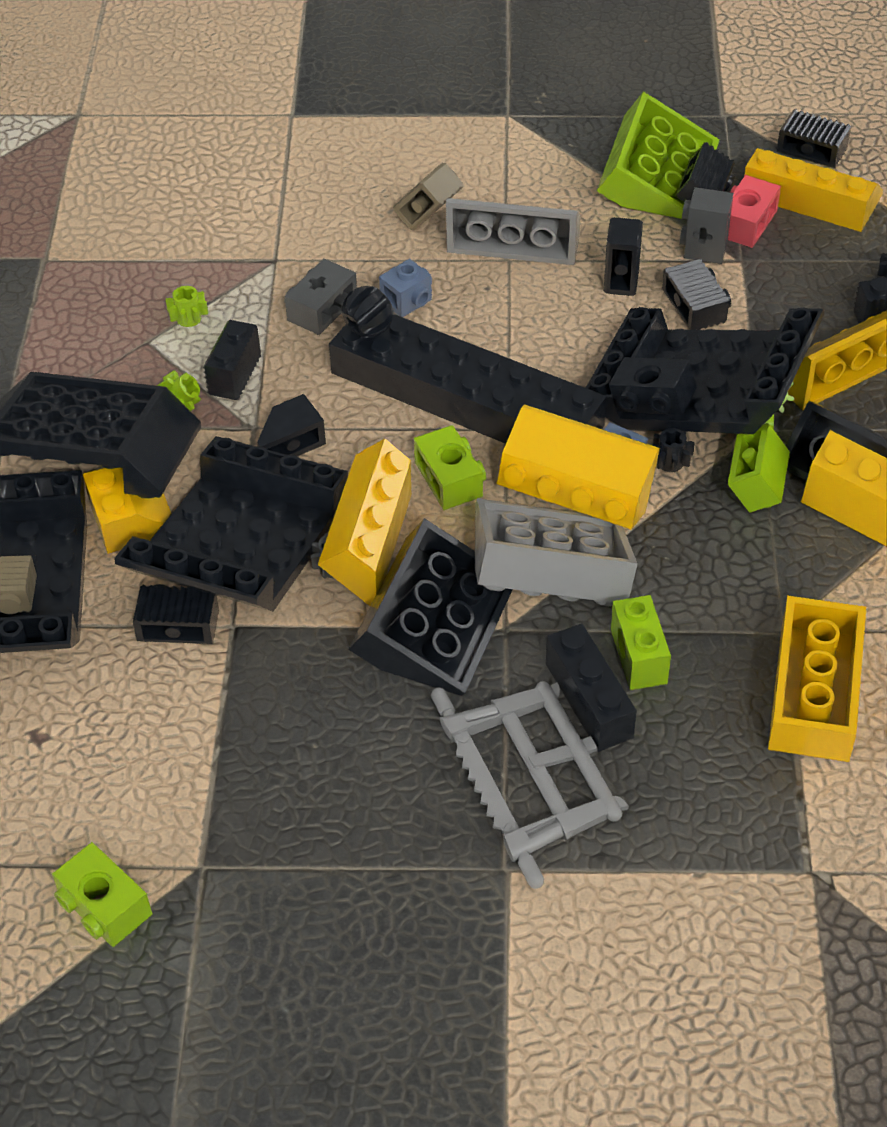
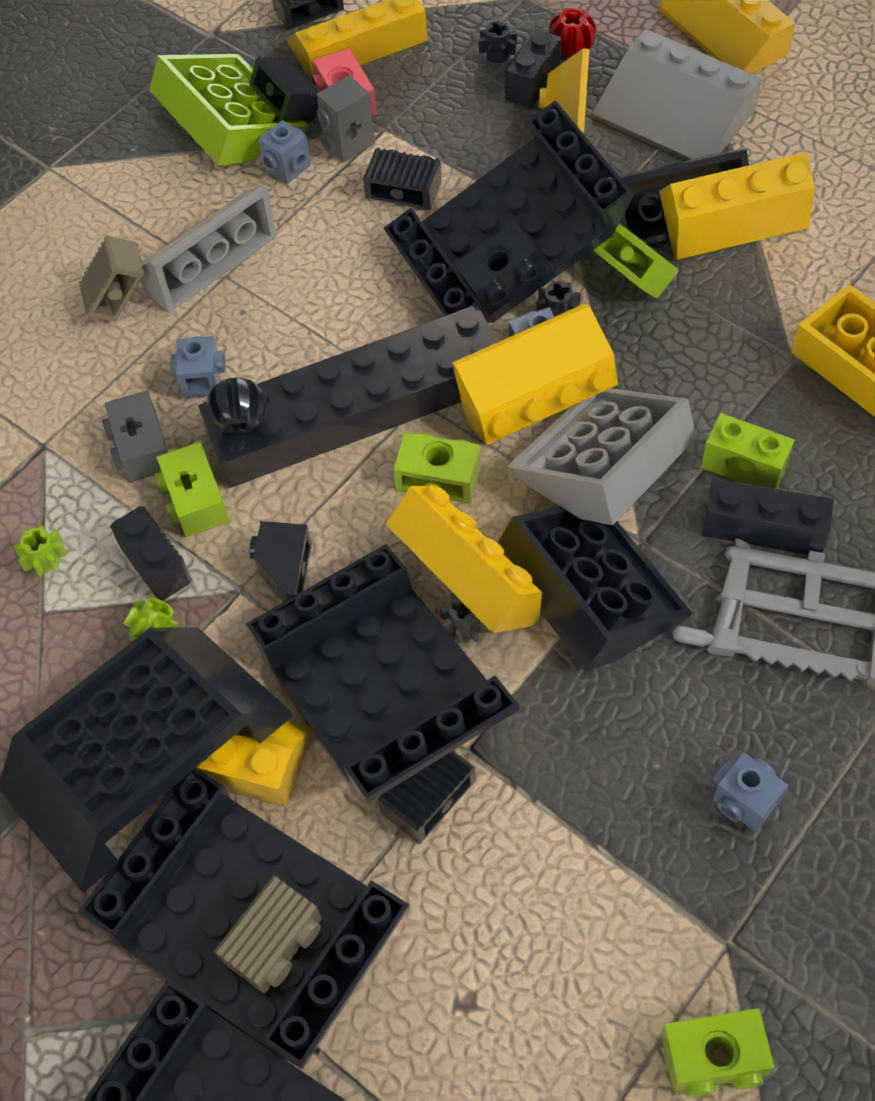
camera: 50 degrees left, 10 degrees up
(302, 350) = (192, 488): none -> lime brick
(326, 801) = (748, 791): none -> sand blue brick
(622, 256) = (324, 194): black brick -> none
(650, 209) = (284, 151): none -> sand blue brick

